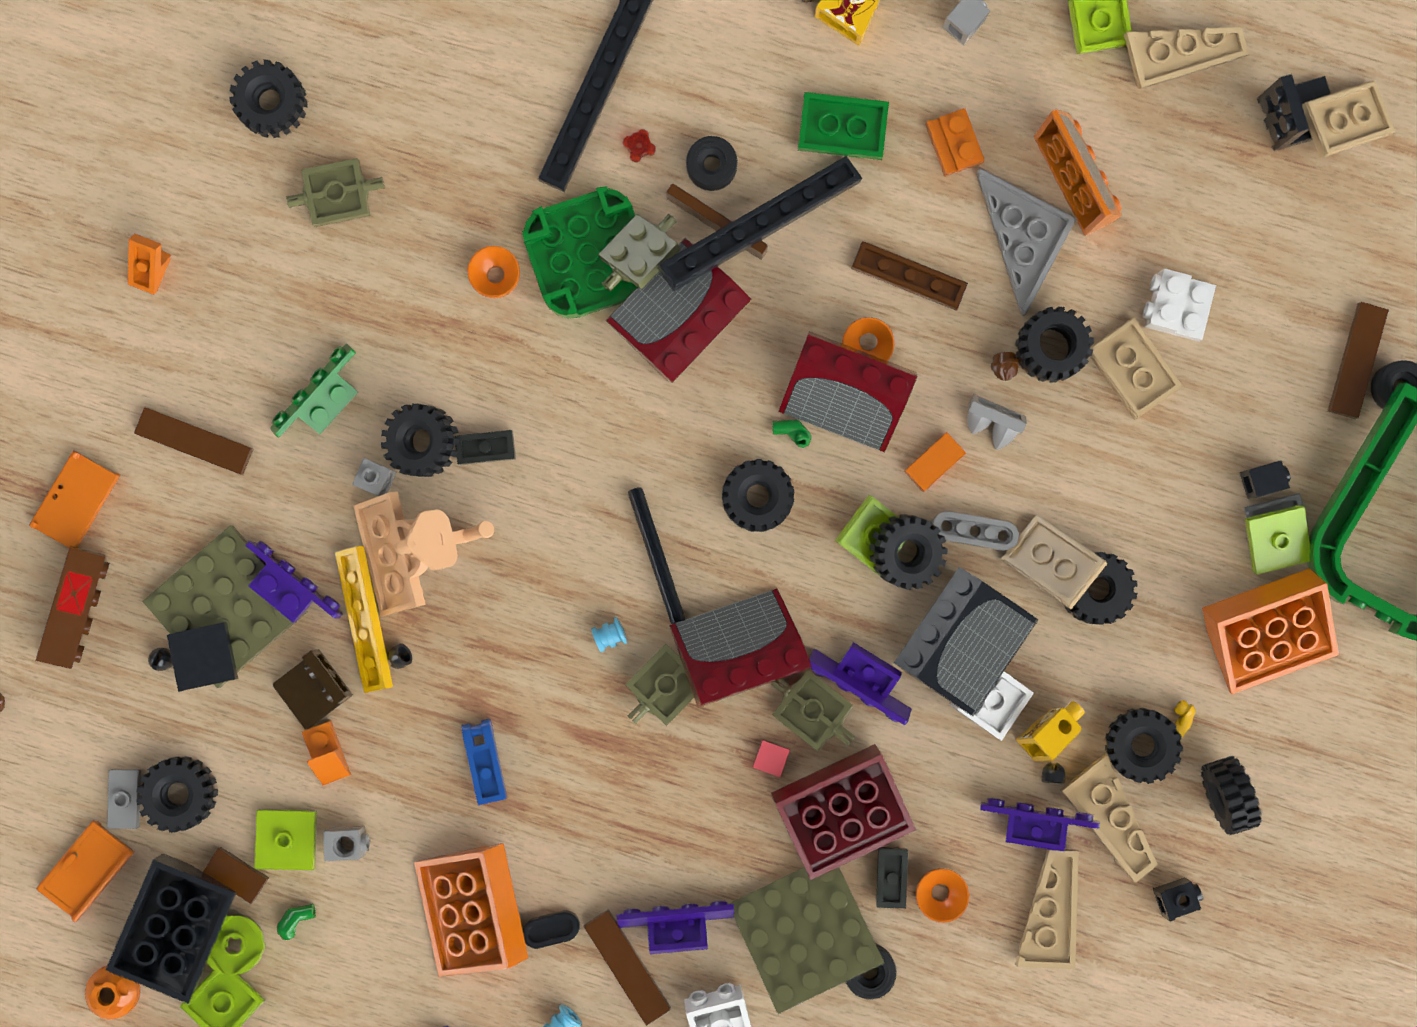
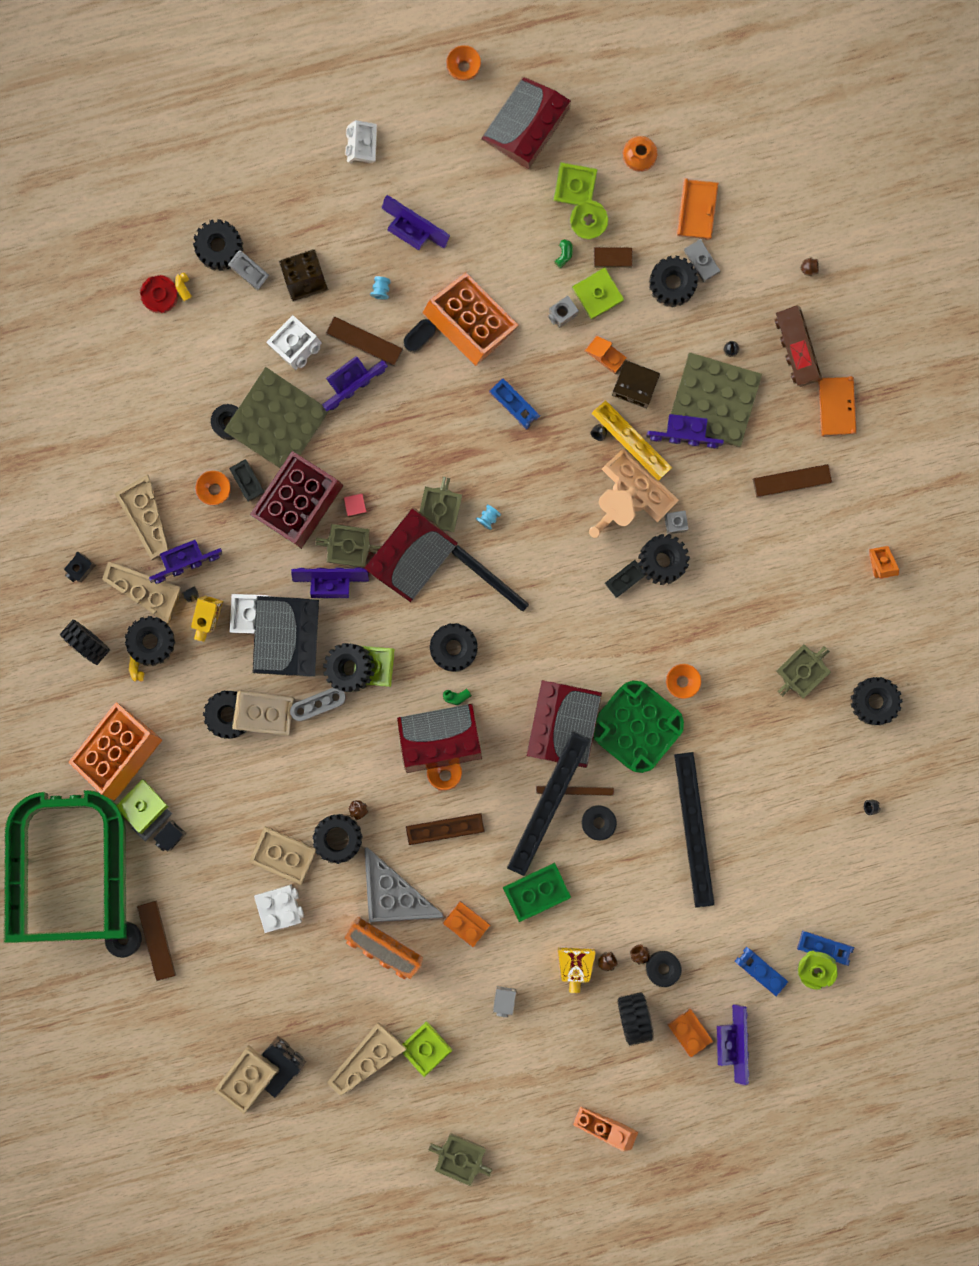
camera: 155 degrees right, 0 degrees up
(171, 928) = (627, 208): black slope -> none
(202, 656) = (707, 364): black tile -> none
(321, 398) = (735, 549): bracket -> none
(638, 251) = (607, 743): olive plate -> none
(641, 137) = (652, 807): clear red plate -> none
(935, 462) = (364, 730): orange tile -> none
(1007, 422) = (338, 778): light grey tile -> none

